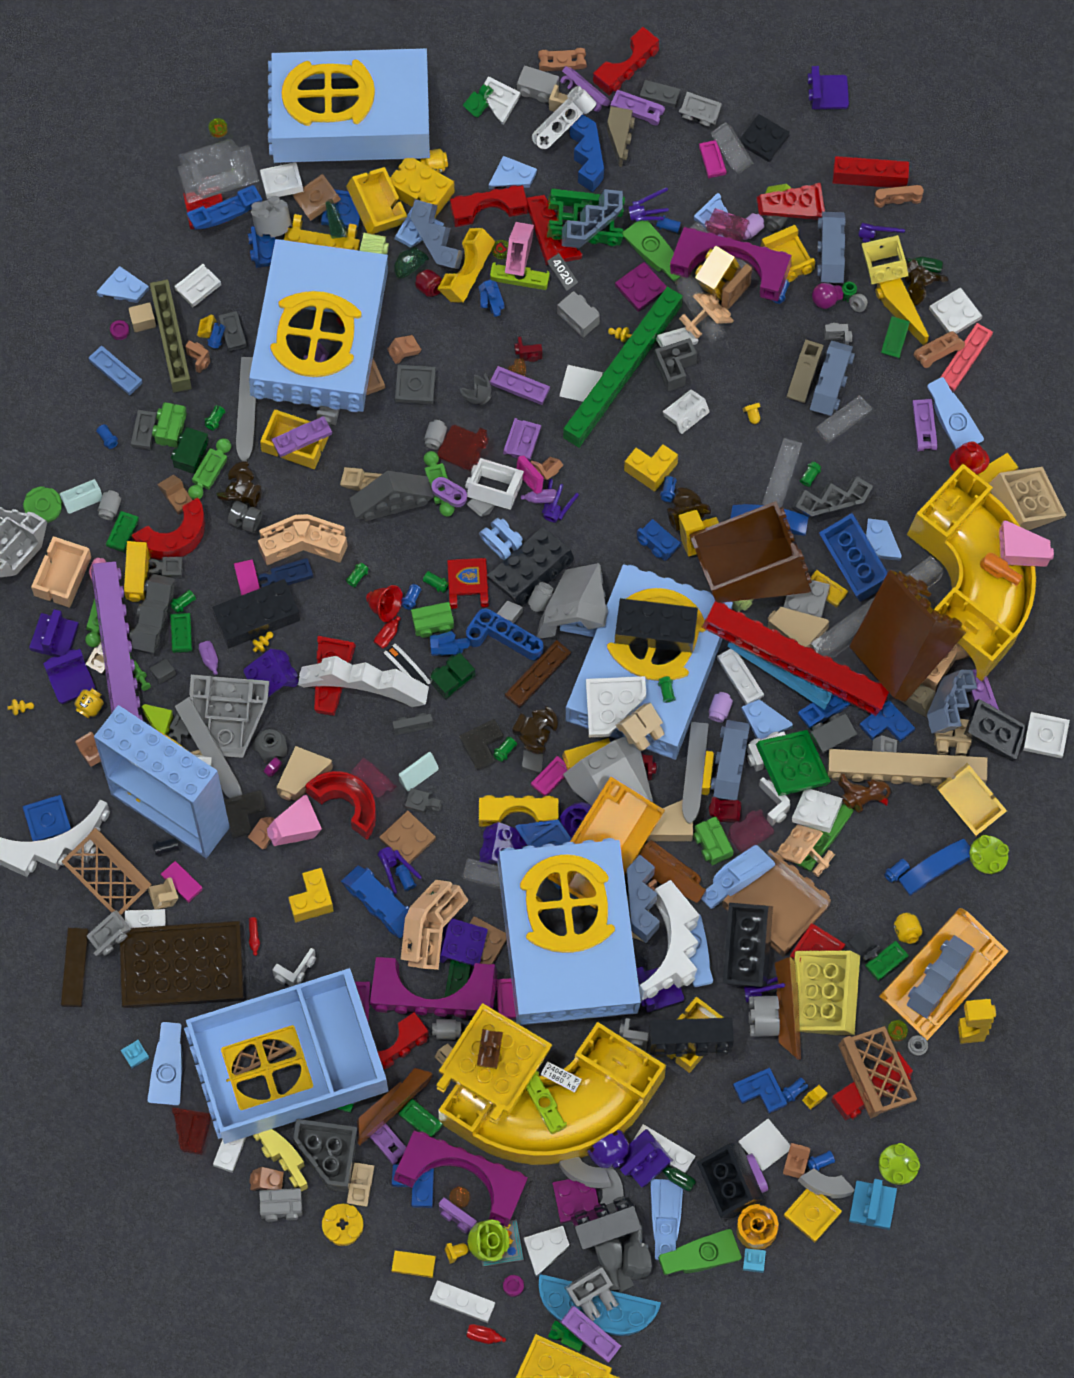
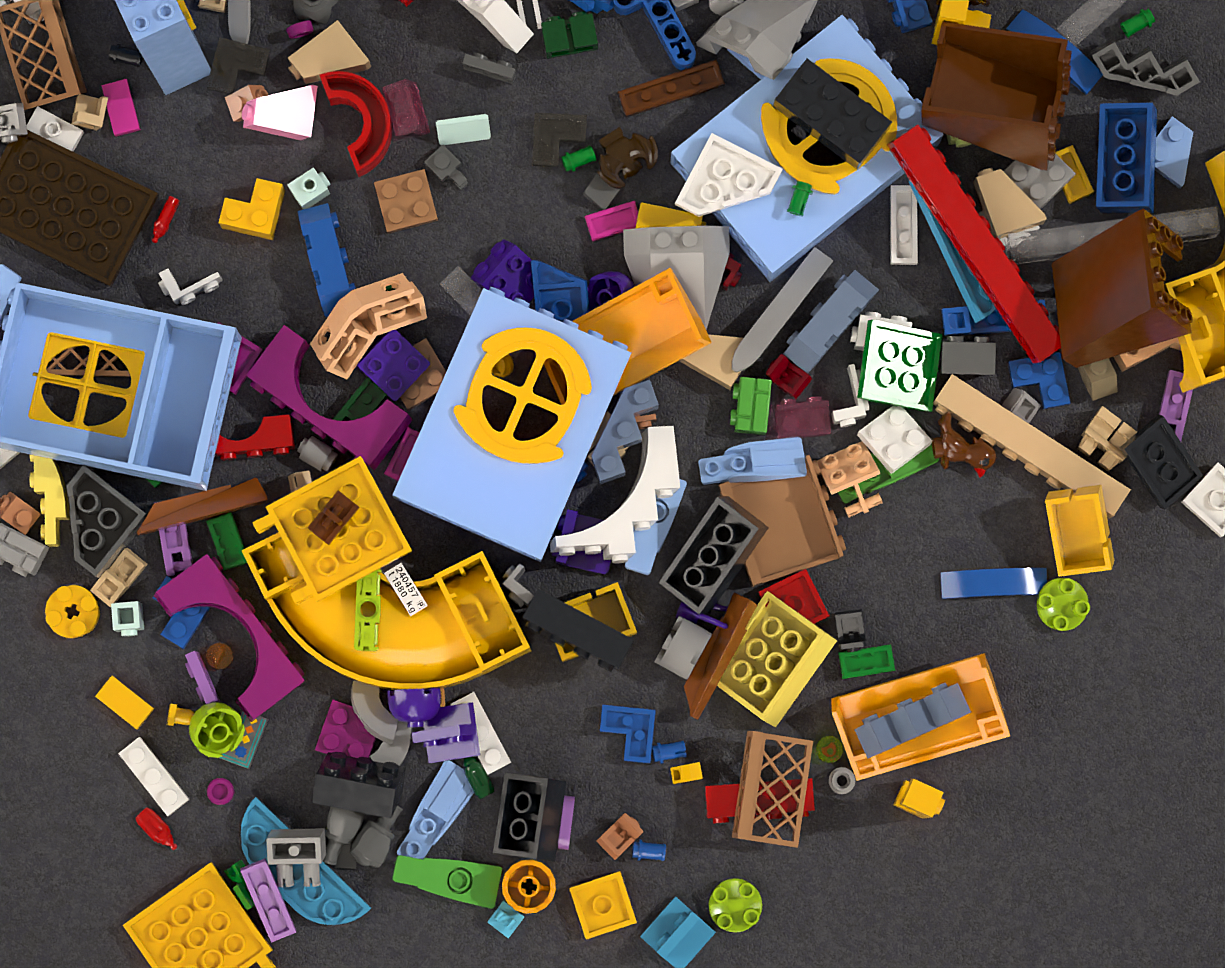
camera: 30 degrees right, 15 degrees up
(339, 863) = (309, 188): none -> light aqua brick
(384, 1204) = (127, 617): none -> light aqua brick
(388, 859) = (367, 215): dark purple plant -> none
(405, 877) = (375, 247): blue pin -> none
(496, 809) = (521, 225): yellow arch -> none
(546, 1247) = (281, 769): white wing -> none
(639, 724) = (731, 232): tan hips -> none
(670, 868) = (682, 410): dark orange wedge -> none
(707, 773) = (794, 320): yellow tile -> none
(720, 707) = (857, 249): lavender brick -> none
(764, 719) = (900, 293): light blue wing -> none
(765, 1144) = (599, 793): white sticker -> none
(830, 1186) = (636, 884): light grey tile -> none
(894, 872) = (943, 561): blue pin -> none
(907, 928) = (913, 638): yellow head -> none
(949, 700) = (1128, 395): sand blue brick -> none

